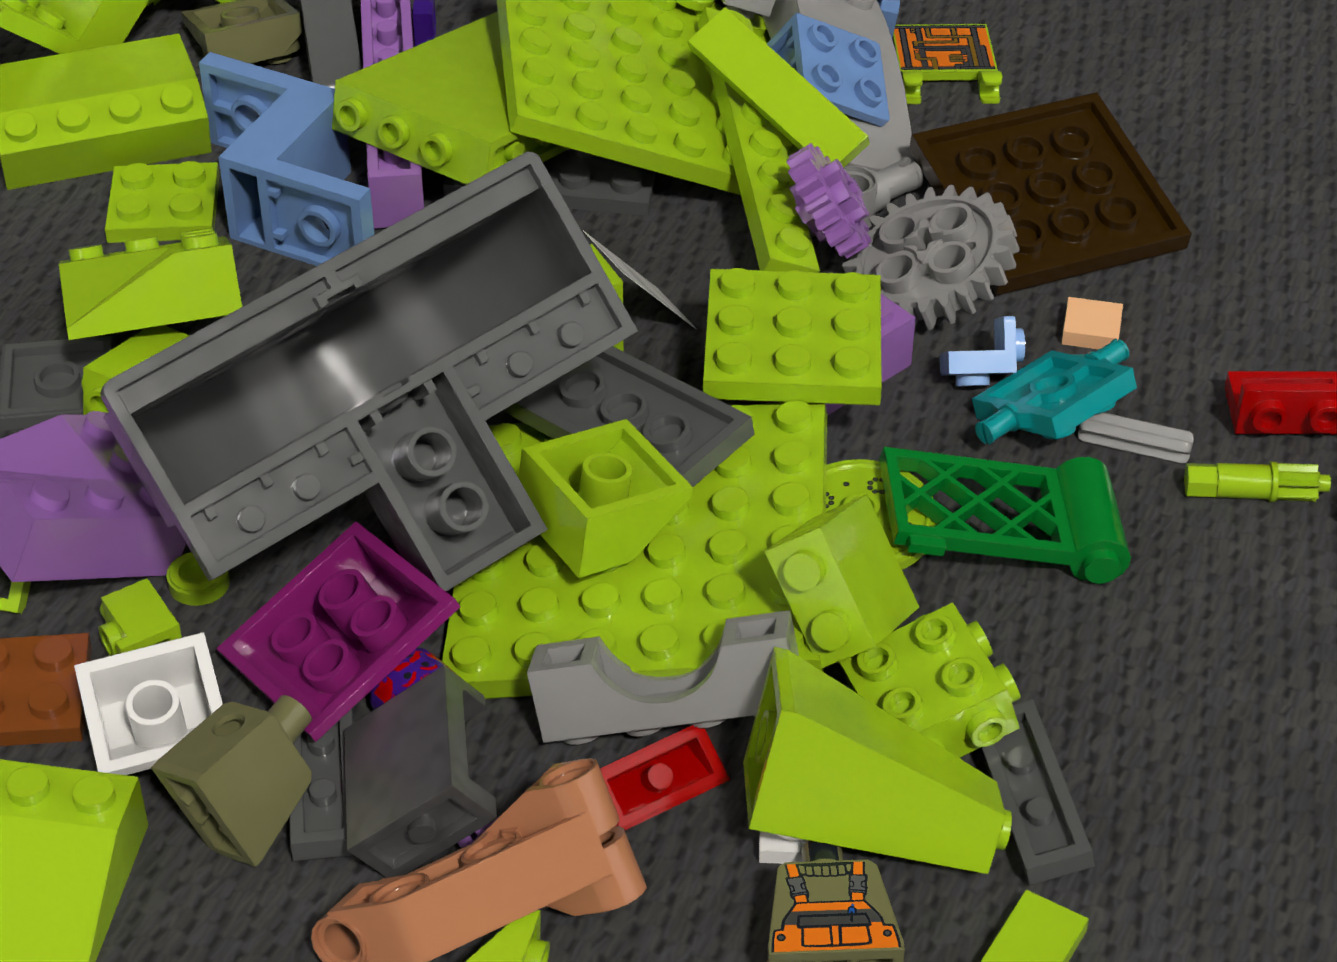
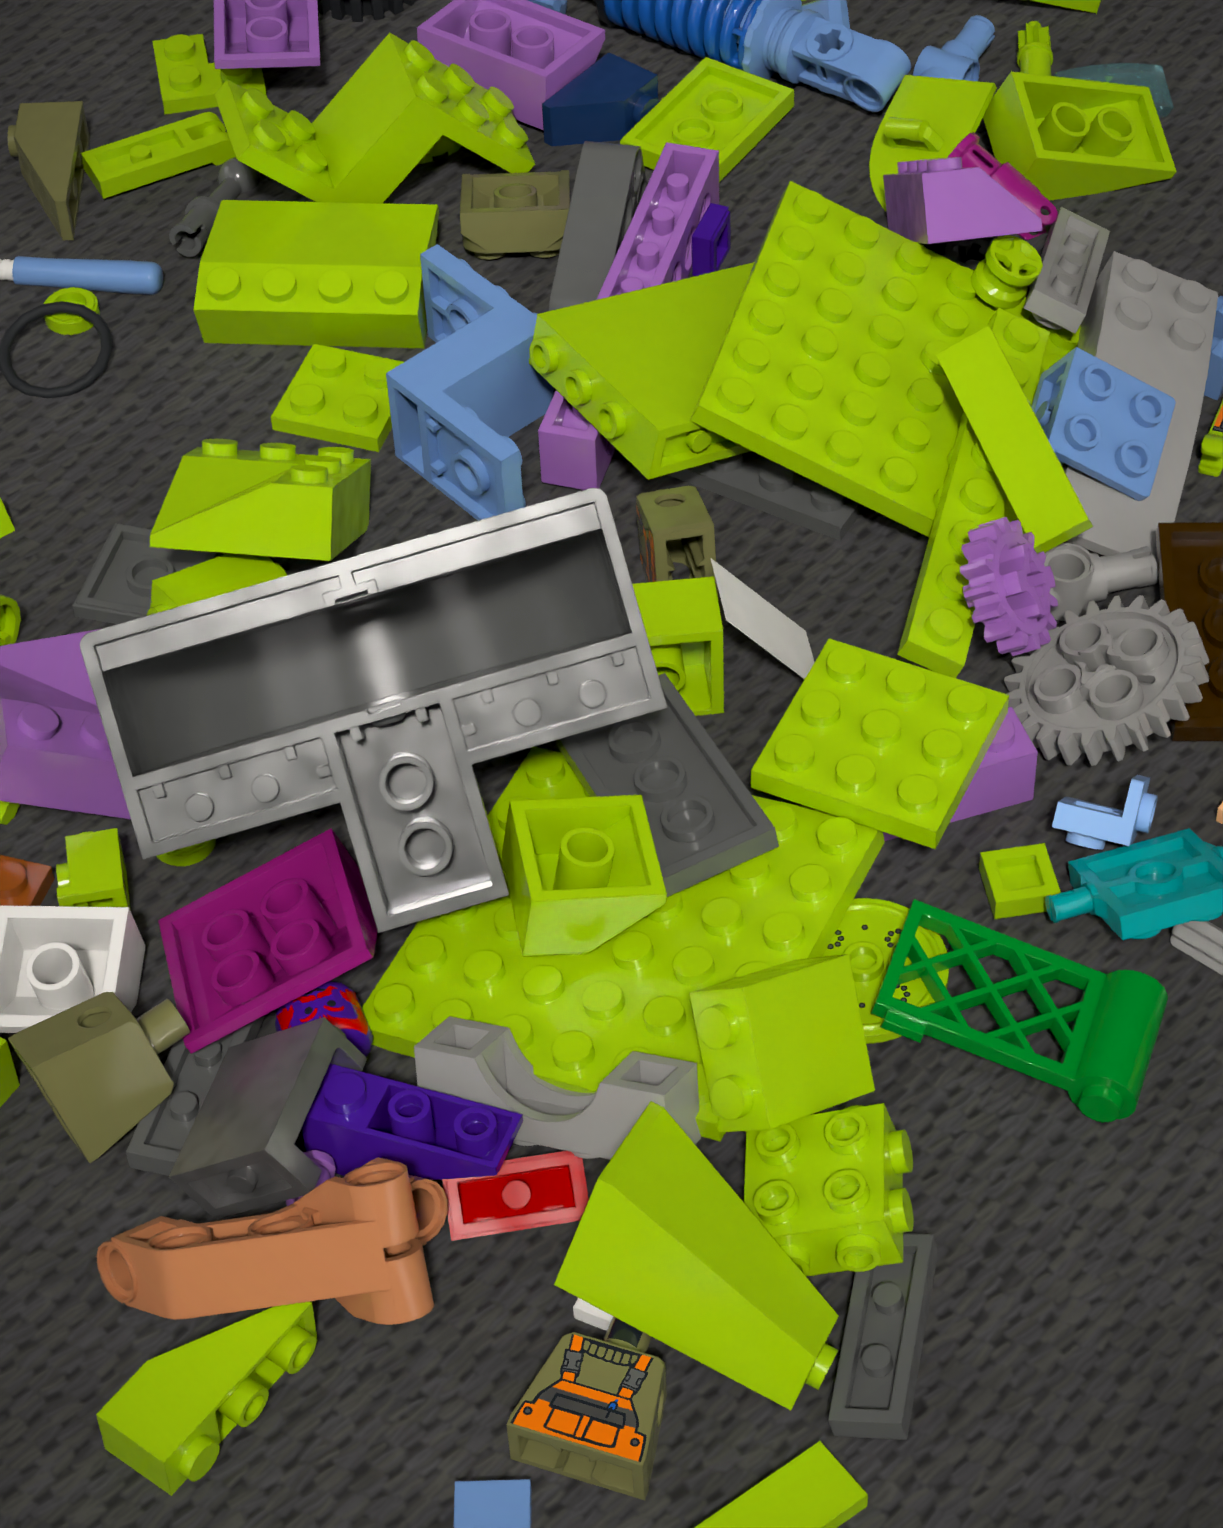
camera: 25 degrees right, 5 degrees up
(519, 744) = (428, 1131): none -> dark purple slope
(940, 422) = (1018, 880): none -> lime plate

